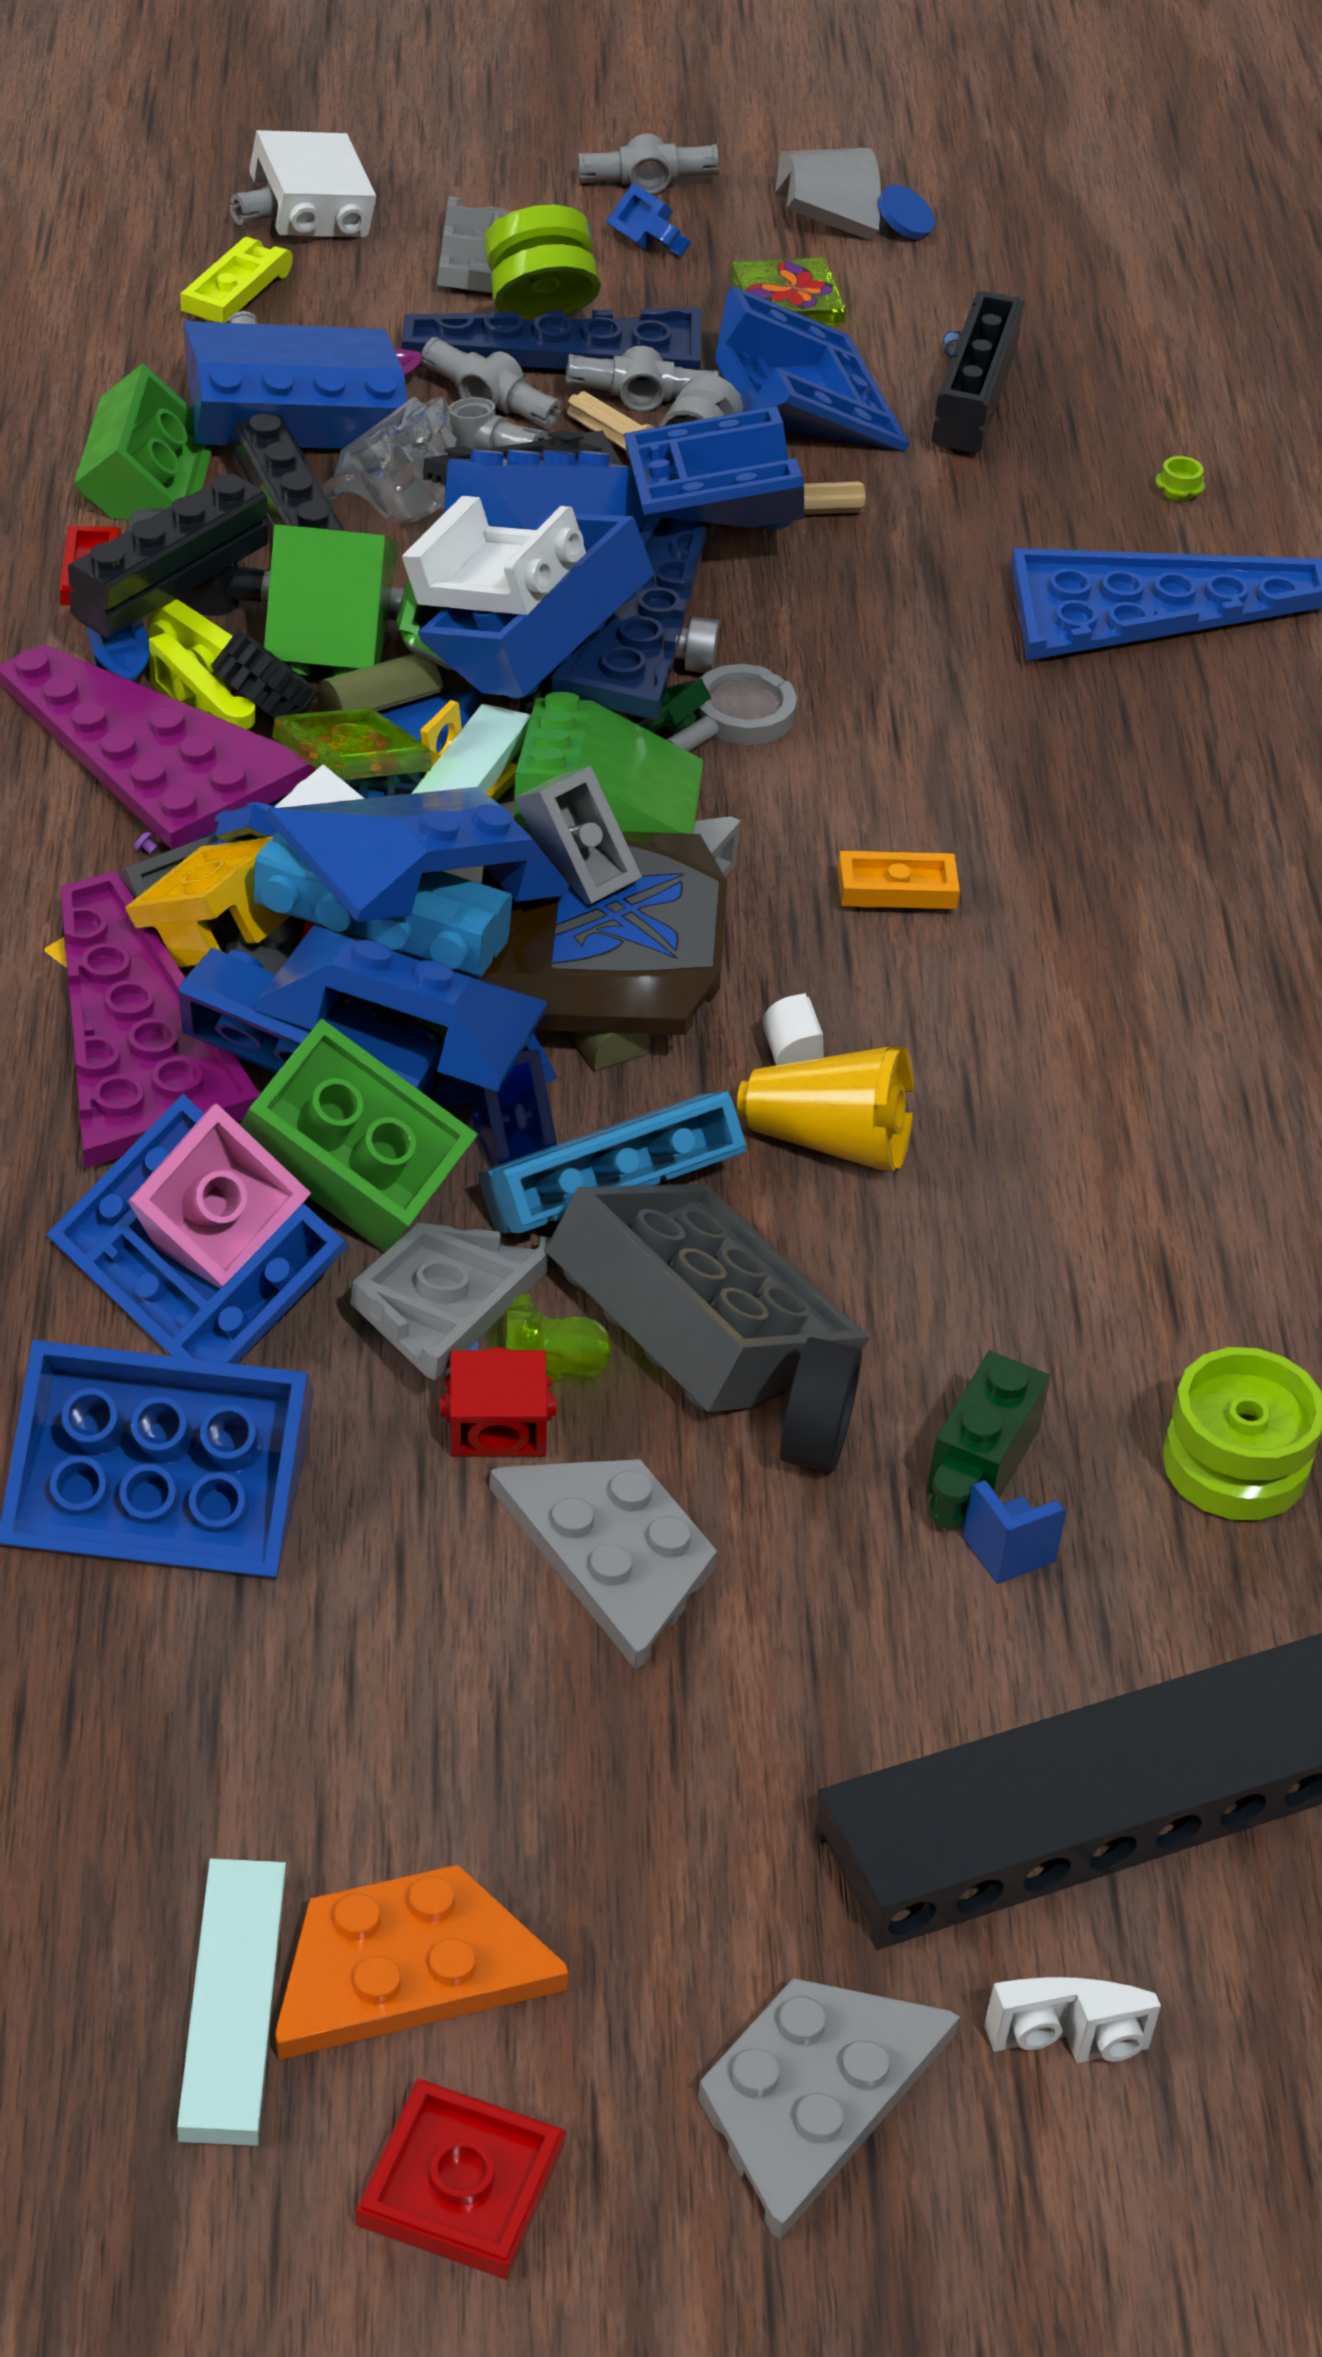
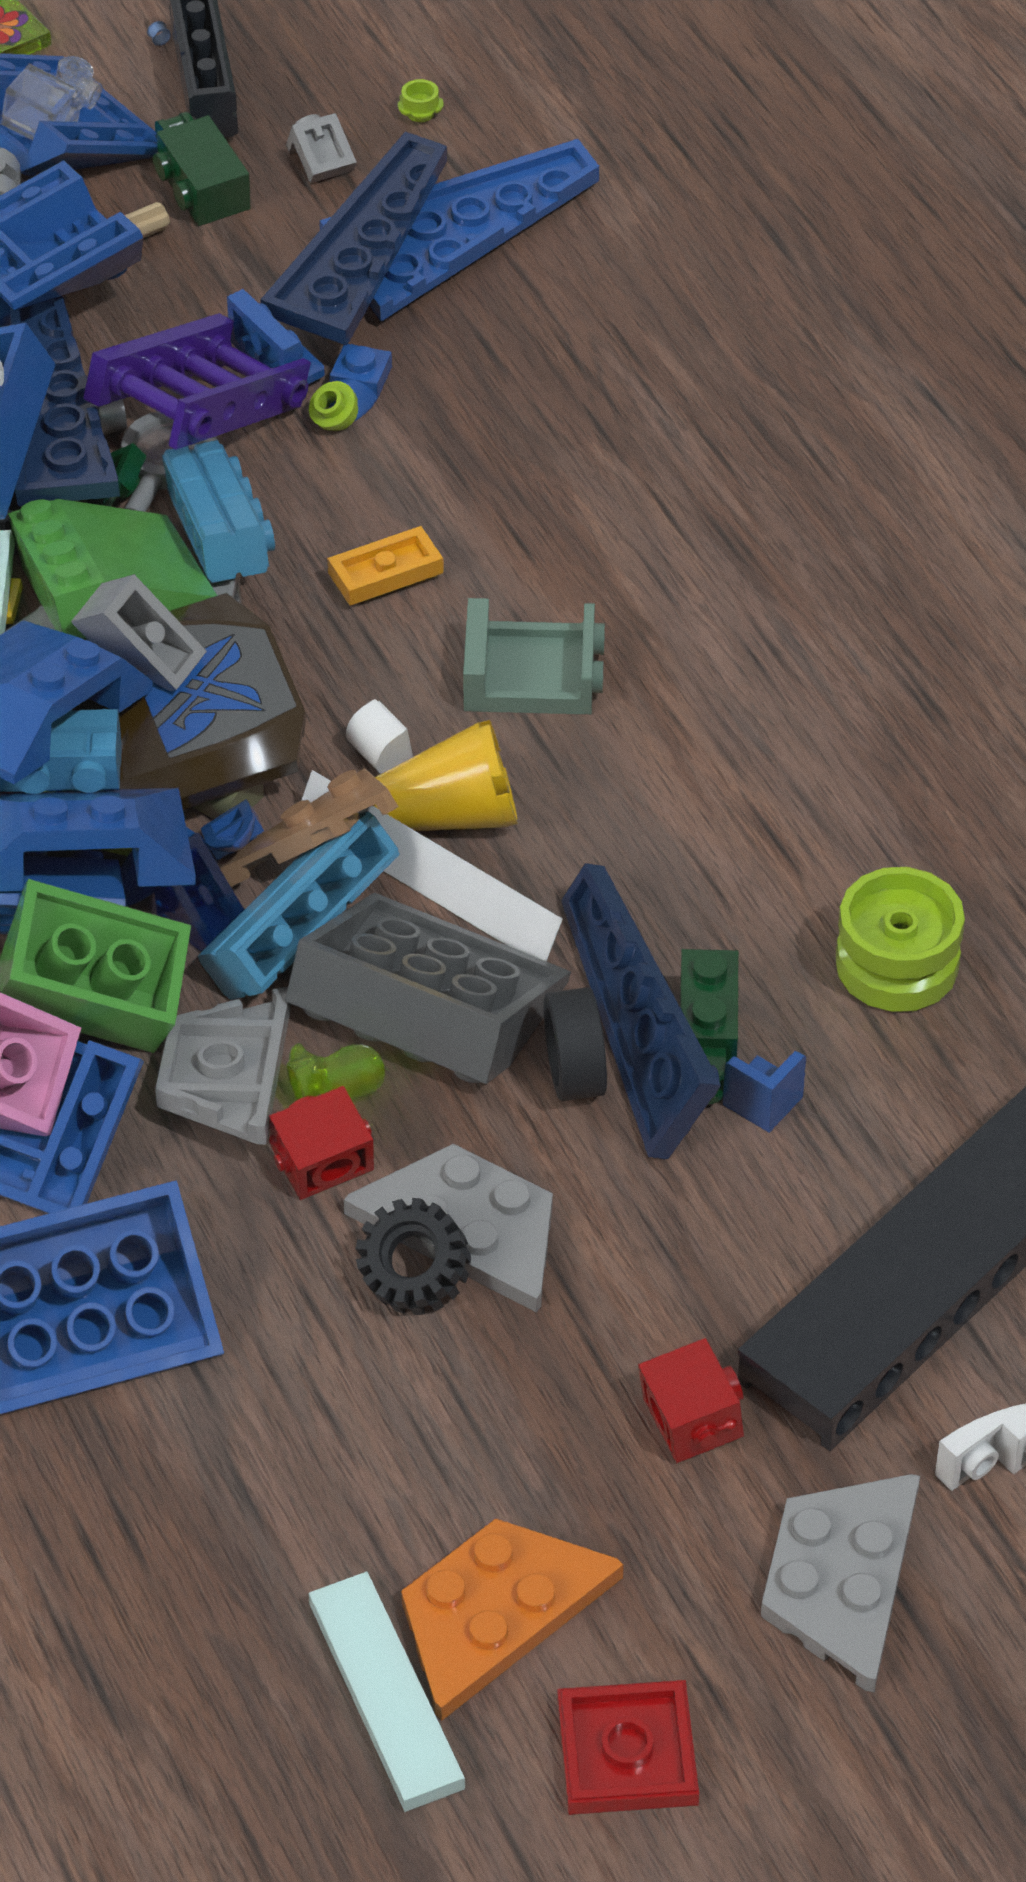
camera: 20 degrees left, 5 degrees up
(500, 1528) = (393, 1228): none -> black tyre
(590, 1070) = (232, 830): none -> blue plate
(661, 1085) = (312, 823): none -> medium nougat wing
(744, 1826) = (692, 1399): none -> red head
(747, 766) = (218, 511): none -> dark azure brick
(784, 1191) = (461, 886): none -> white sticker
(789, 616) = (200, 351): none -> dark purple fence
(799, 351) = (46, 97): none -> clear brick
(898, 640) = (264, 337): none -> blue bracket
(910, 1415) = (647, 1031): none -> dark blue wing
(921, 468) = (201, 168): none -> dark green brick
(931, 718) = (341, 414): none -> lime plate
(971, 706) = (364, 371): none -> blue plate
(995, 1023) = (531, 663): none -> sand green panel
(1023, 584) = (349, 257): none -> dark blue wing
(1054, 486) = (321, 147): none -> light grey bracket

